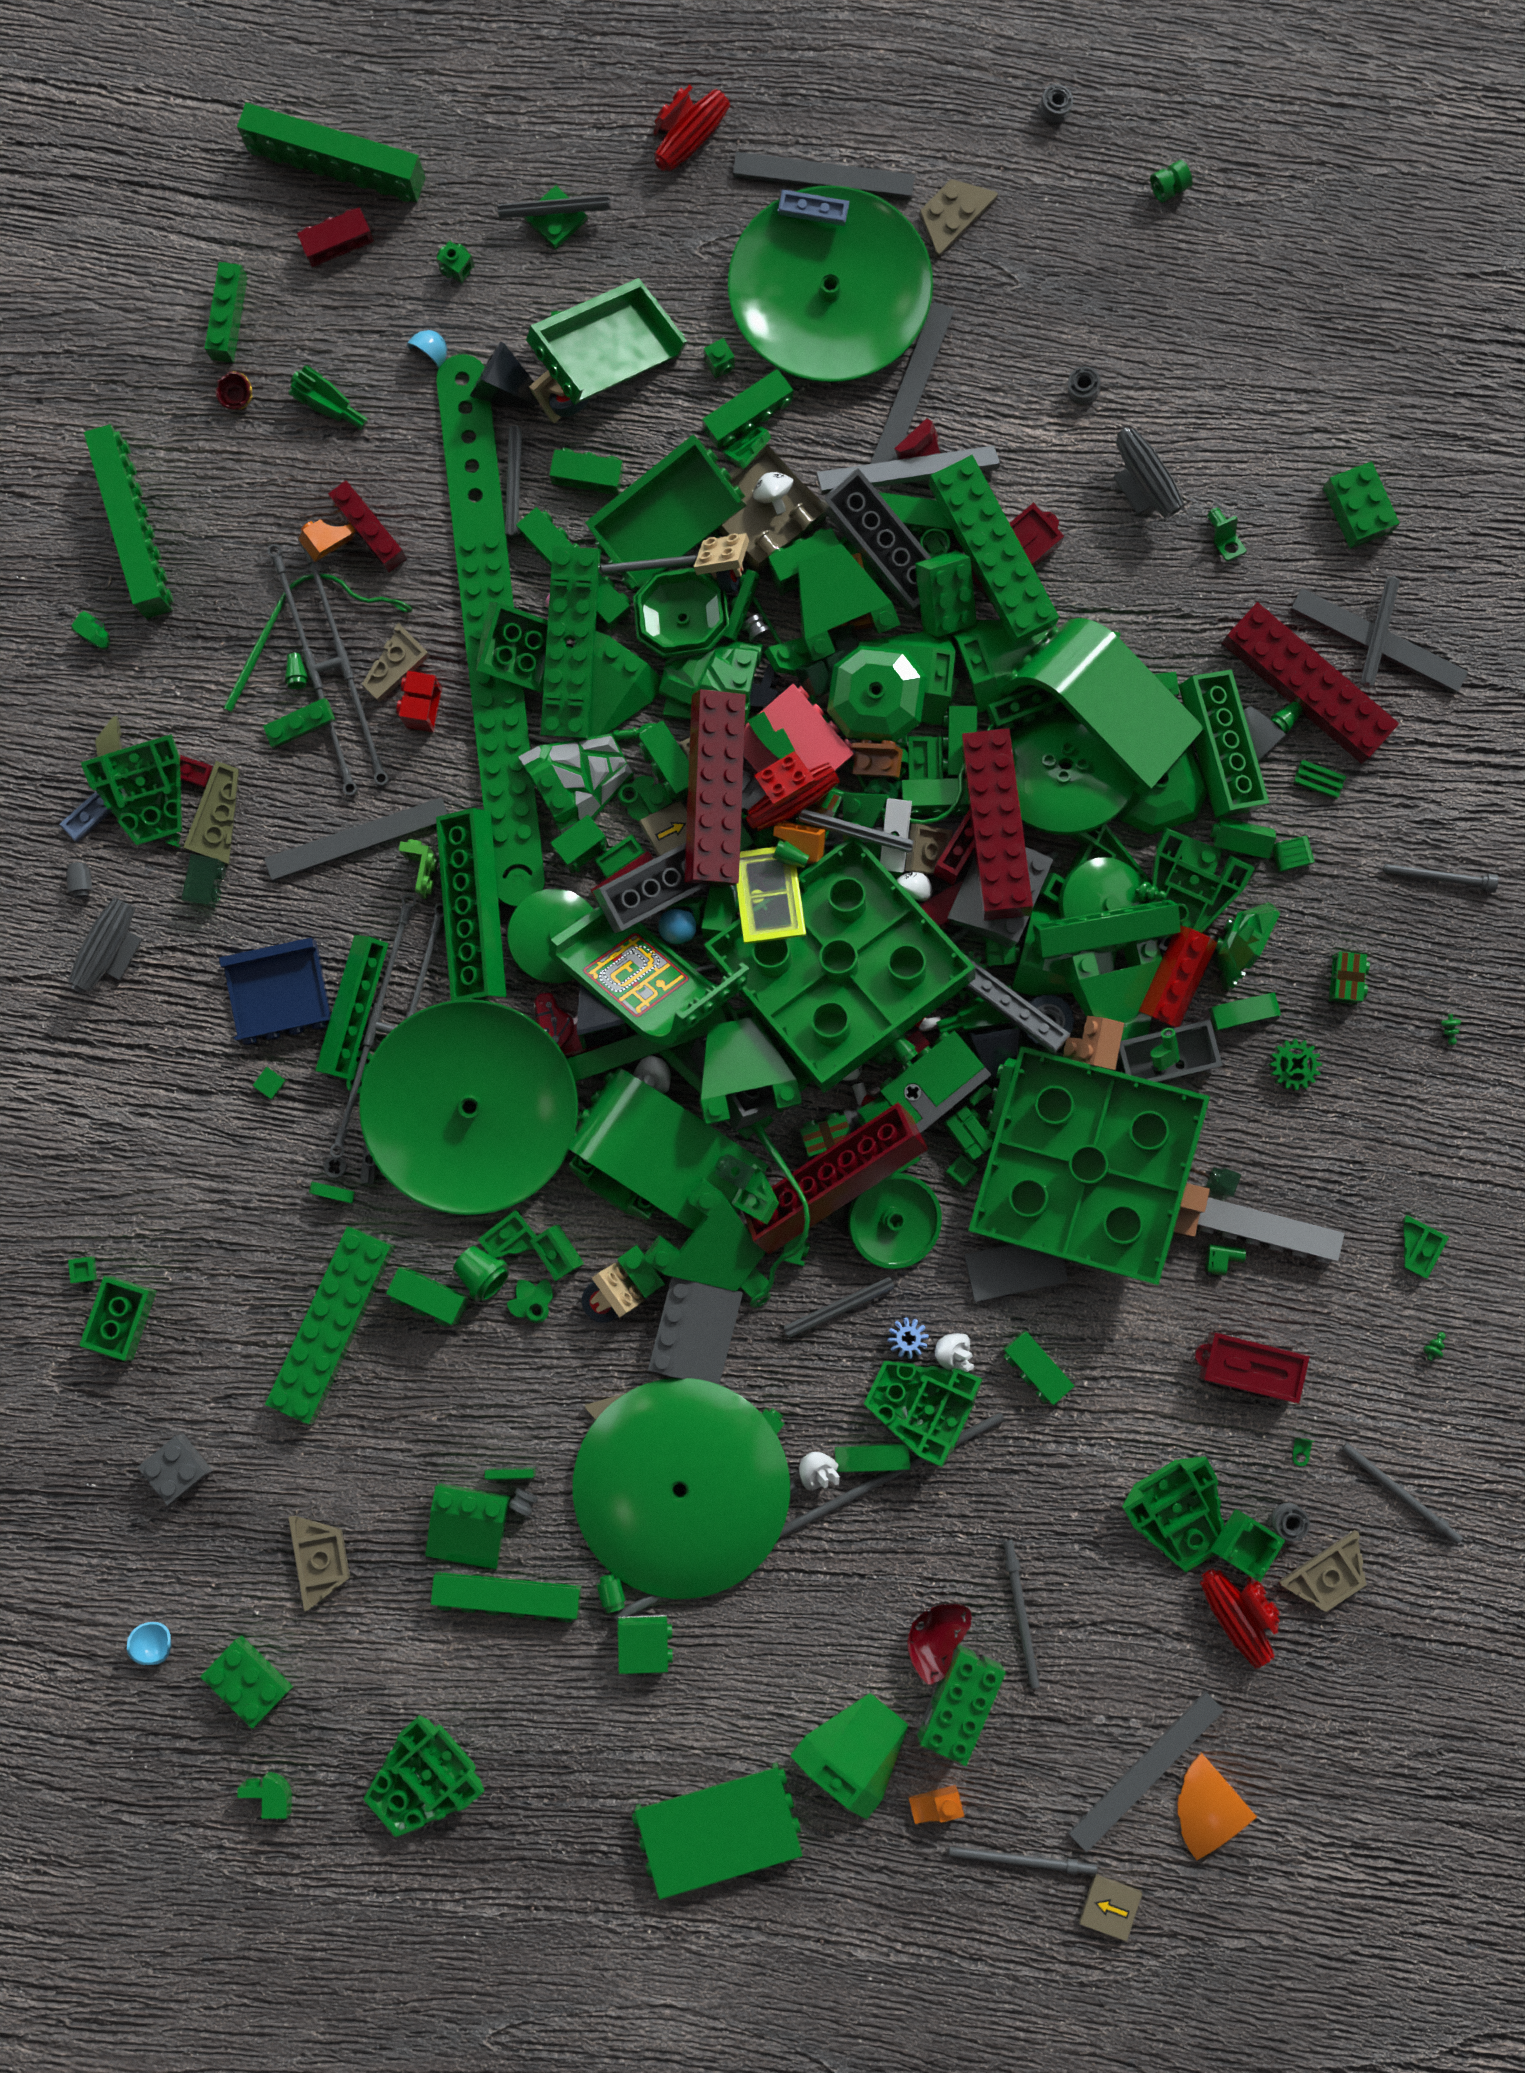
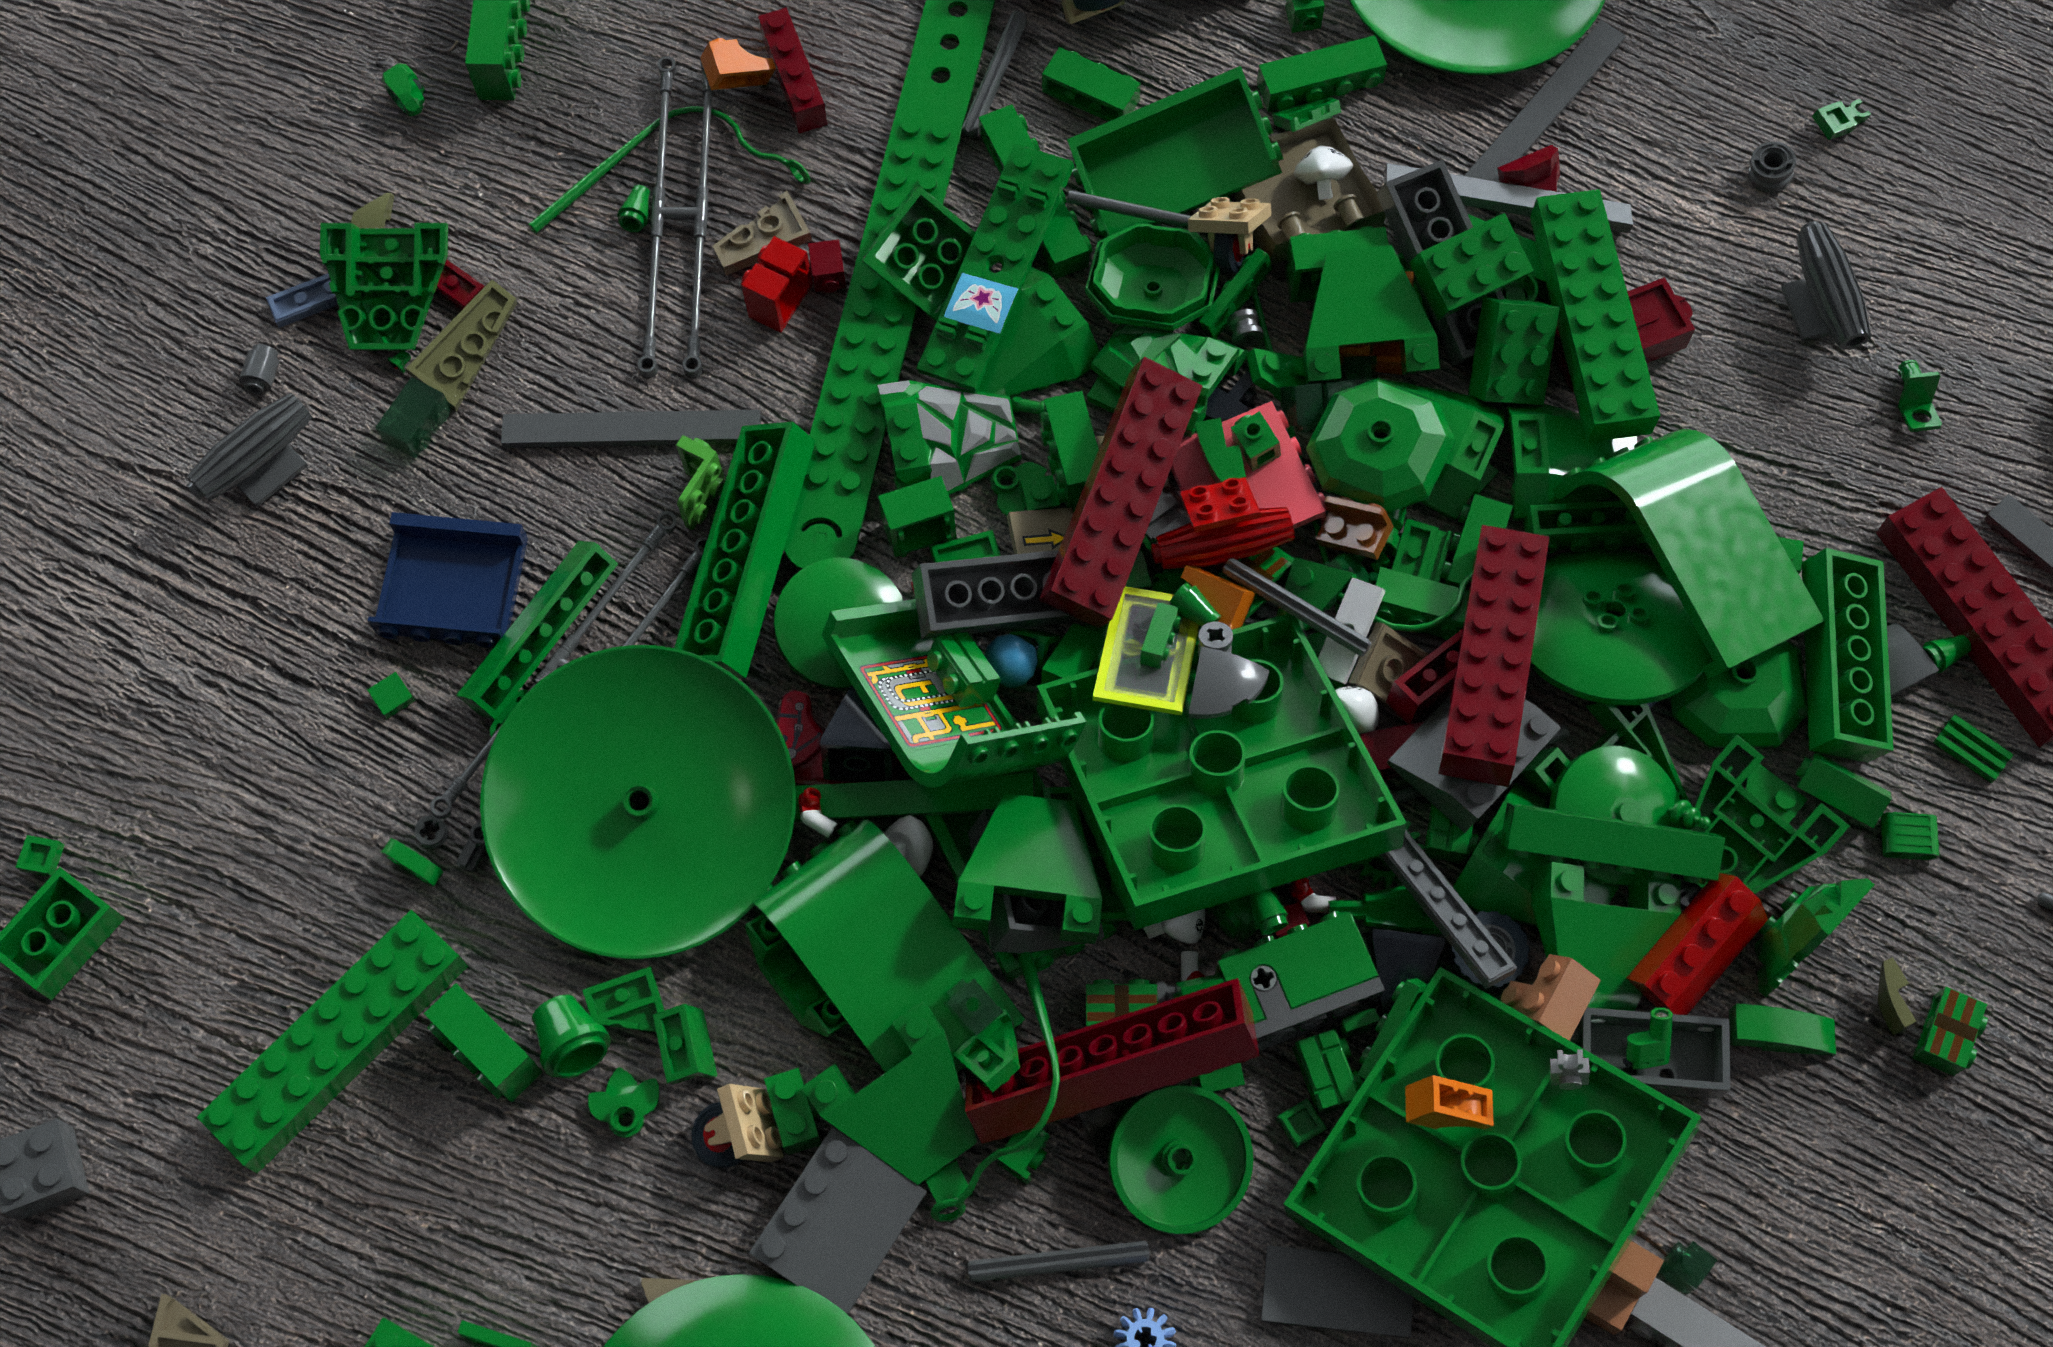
camera: 20 degrees right, 15 degrees down
(299, 723) = (614, 268): green plate -> none
(449, 674) = (827, 265): none -> dark red brick
(570, 675) = (980, 303): none -> medium azure sticker
(583, 1075) = (811, 813): none -> arm
(650, 946) = (963, 669): none -> green brick
(774, 883) = (1160, 635): none -> green piece
(791, 718) = (1256, 440): none -> green brick
(814, 882) = (1218, 633): none -> flat silver wheel
(826, 904) = (1224, 682): none -> dark grey brick
(901, 543) = (1471, 266): none -> green brick
(1053, 1138) = (1448, 1103): none -> orange arch
(1120, 331) = (1839, 120): none -> green plate
(1122, 1094) = (1569, 1070): none -> light grey plate
(1302, 1070) = (1832, 1117): green gear -> none
(1309, 974) = (1891, 1004): none -> olive slope

